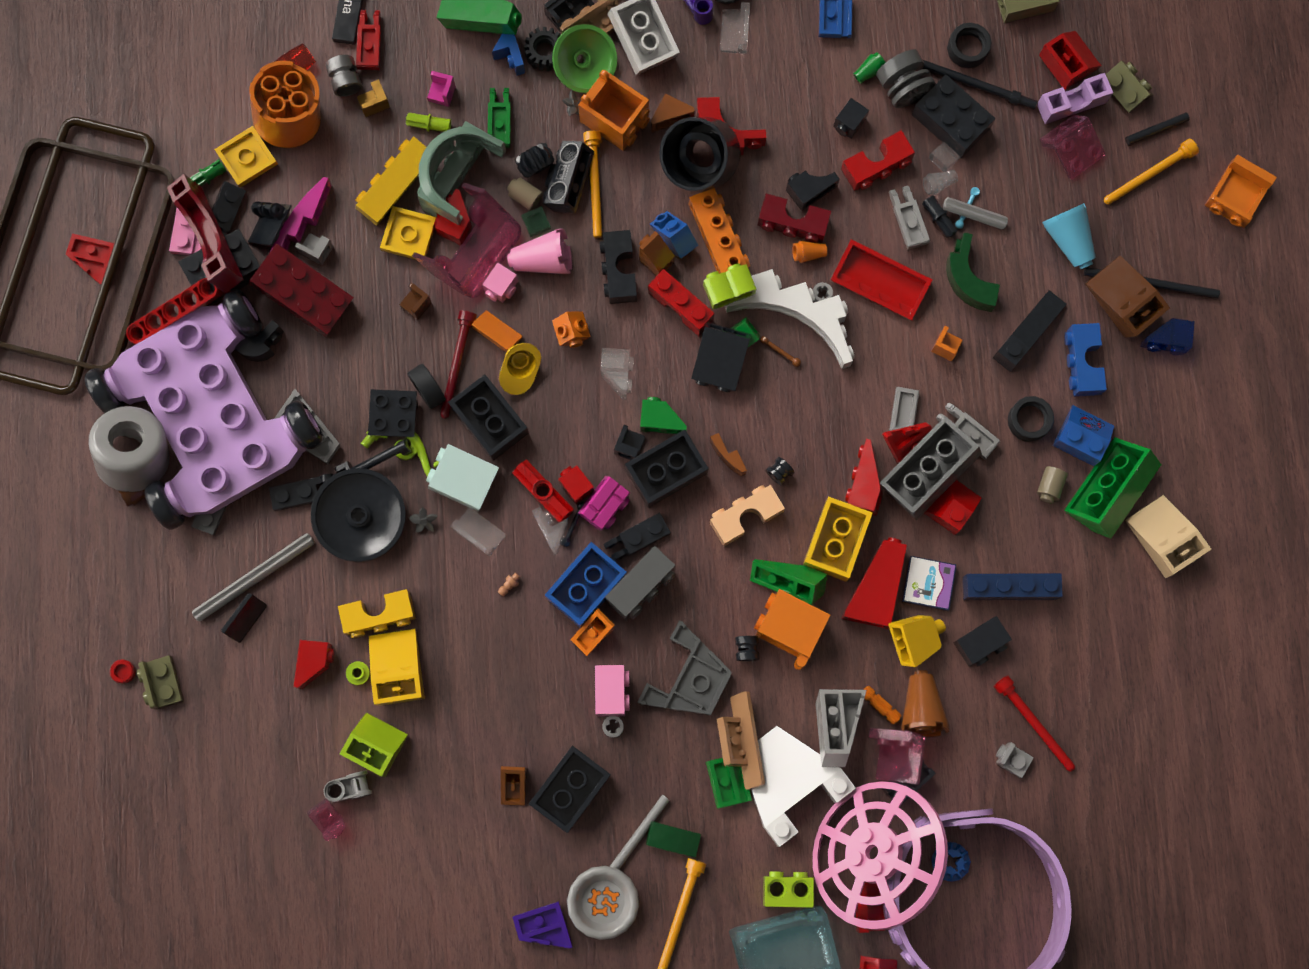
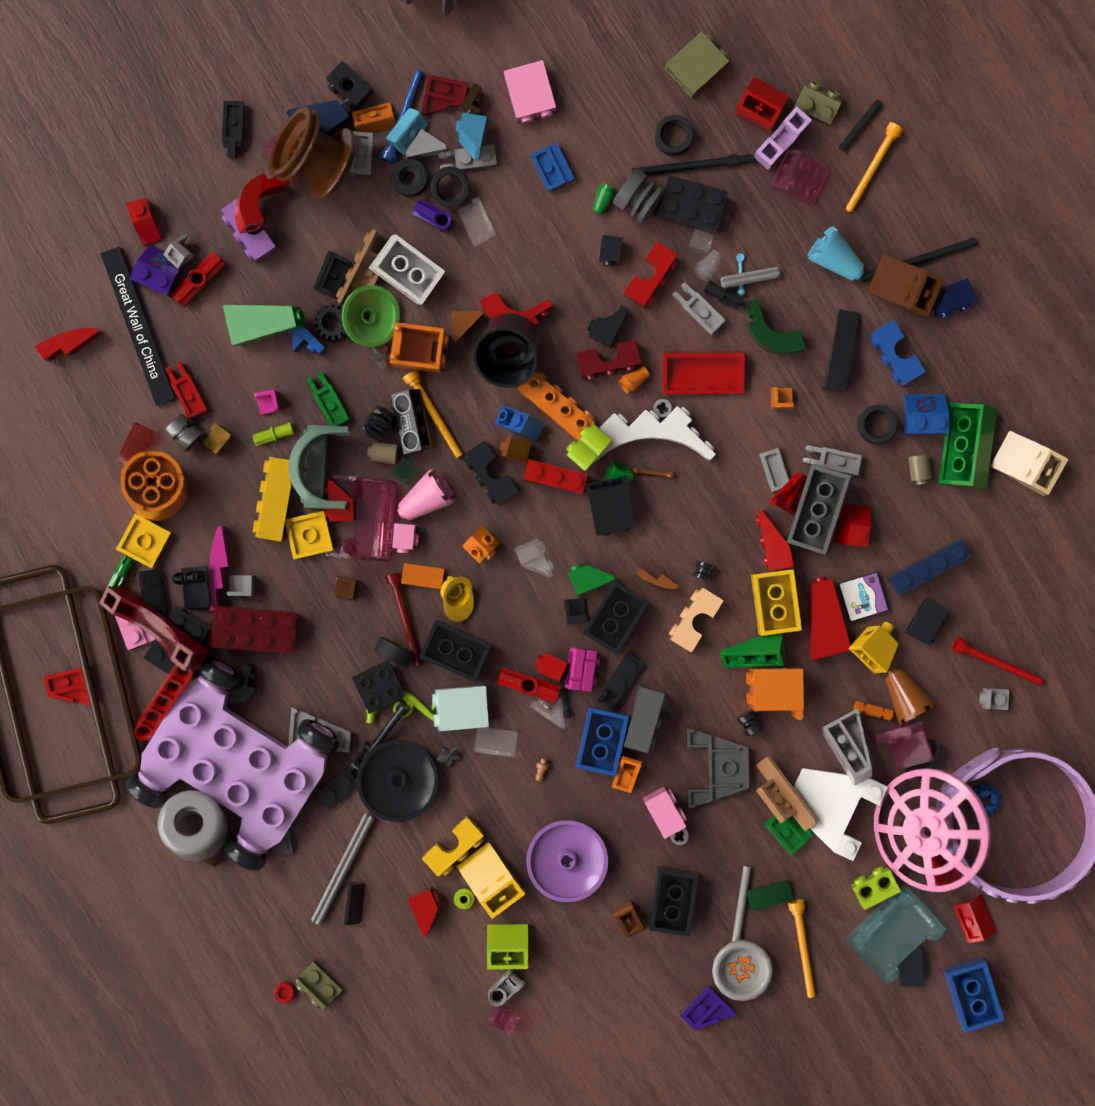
camera: 25 degrees left, 10 degrees up
(483, 688) = (567, 860): none -> medium lavender dish
(1240, 191) = (951, 146): orange panel -> none

